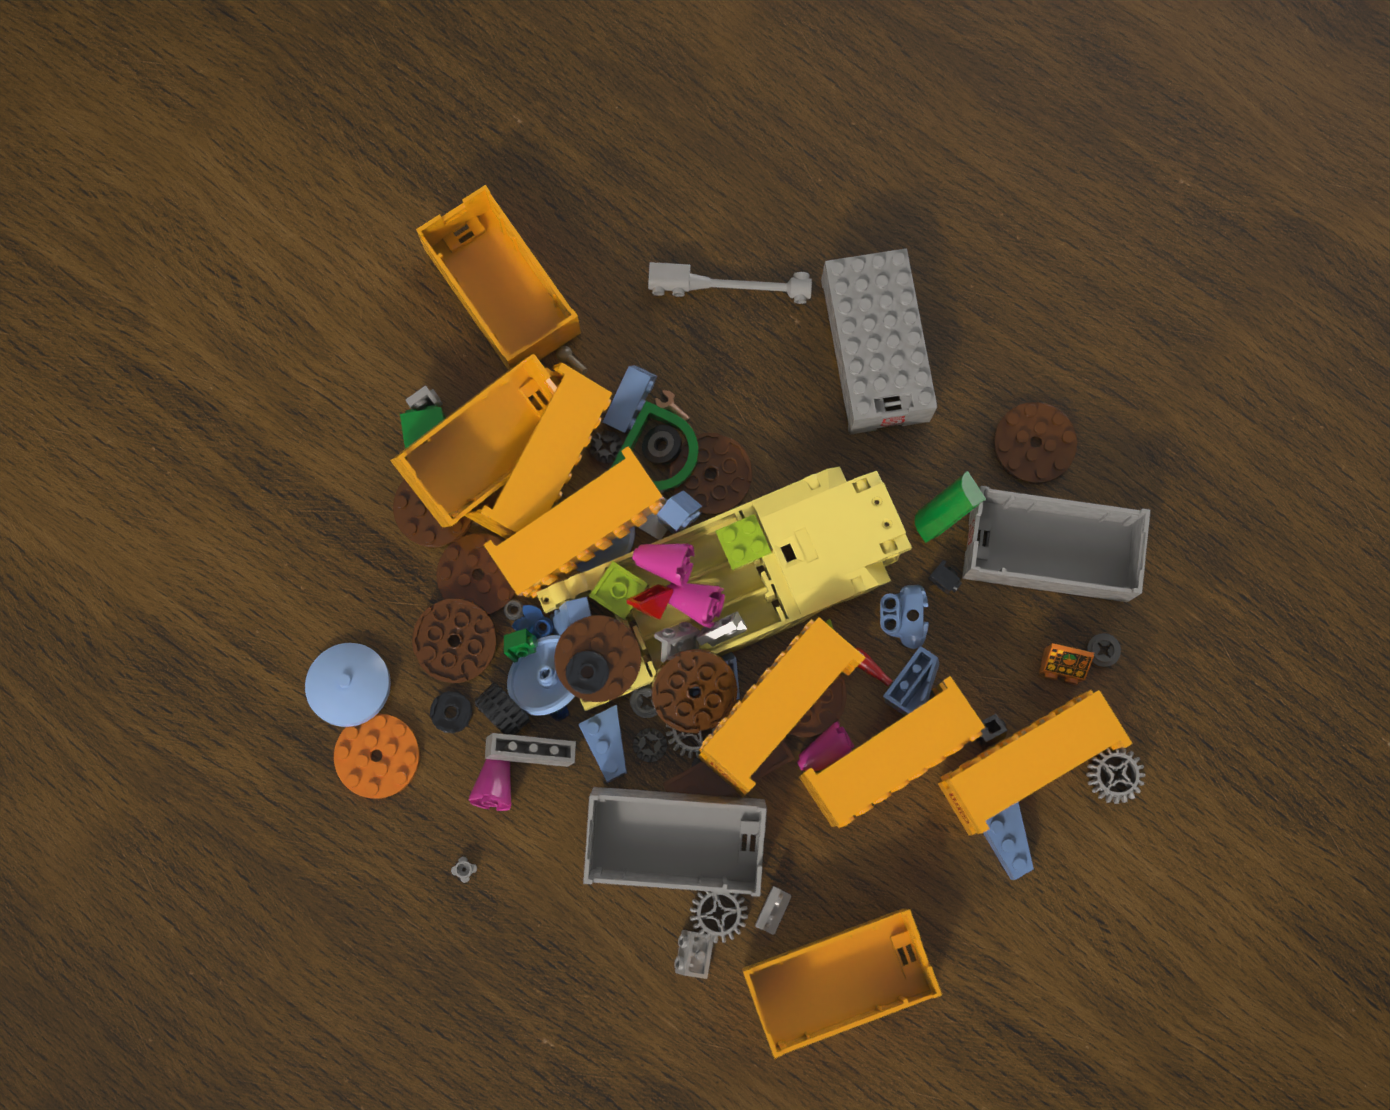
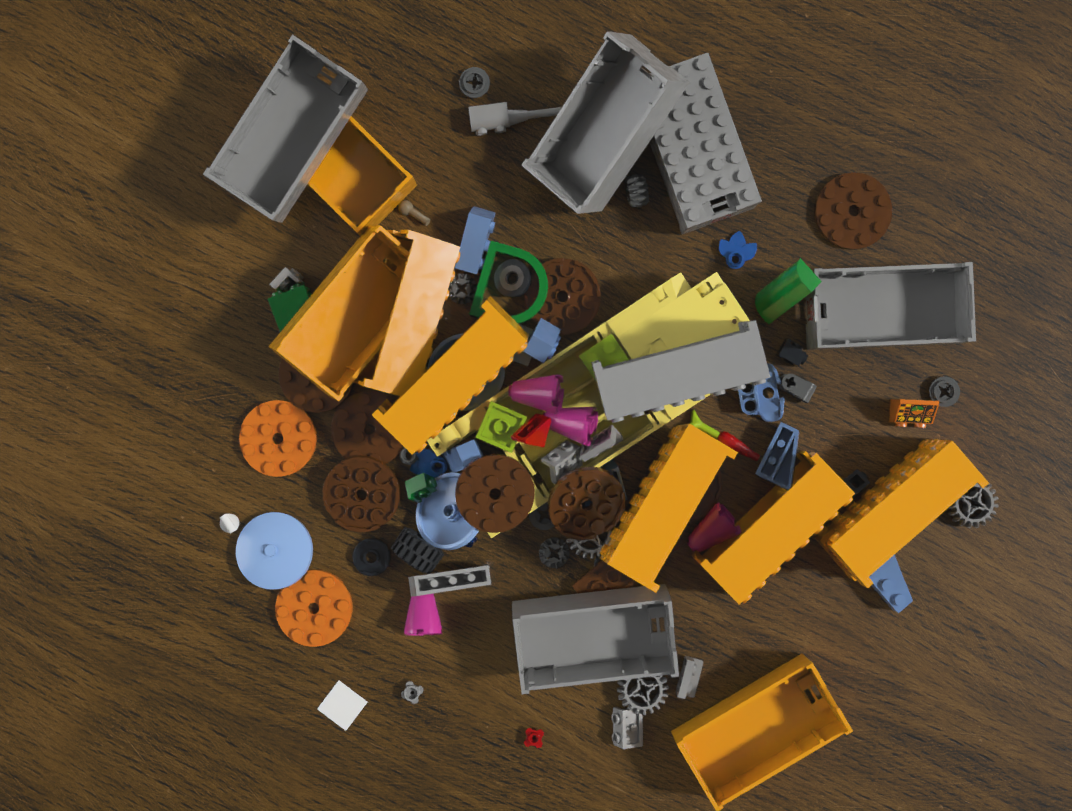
camera: 10 degrees left, 10 degrees up
(306, 646) = (229, 523): none -> white plate
(366, 548) = (258, 443): none -> orange plate
(384, 870) = (342, 705): none -> white sticker
(458, 243) = (286, 131): none -> light grey piece
(584, 940) = (534, 732): none -> red plate
(591, 684) = (491, 520): black tile -> none
(605, 742) = (514, 559): medium blue wedge -> none
(656, 234) = (481, 76): none -> dark grey gear
(669, 405) = (514, 239): nougat bar -> none
(787, 299) = (605, 123): none -> light grey piece
(809, 378) = (636, 190): none -> dark grey gear
(818, 560) = (682, 373): none -> light grey piece
(905, 458) = (737, 247): none -> blue plate
(947, 616) = (799, 387): none -> dark grey piece

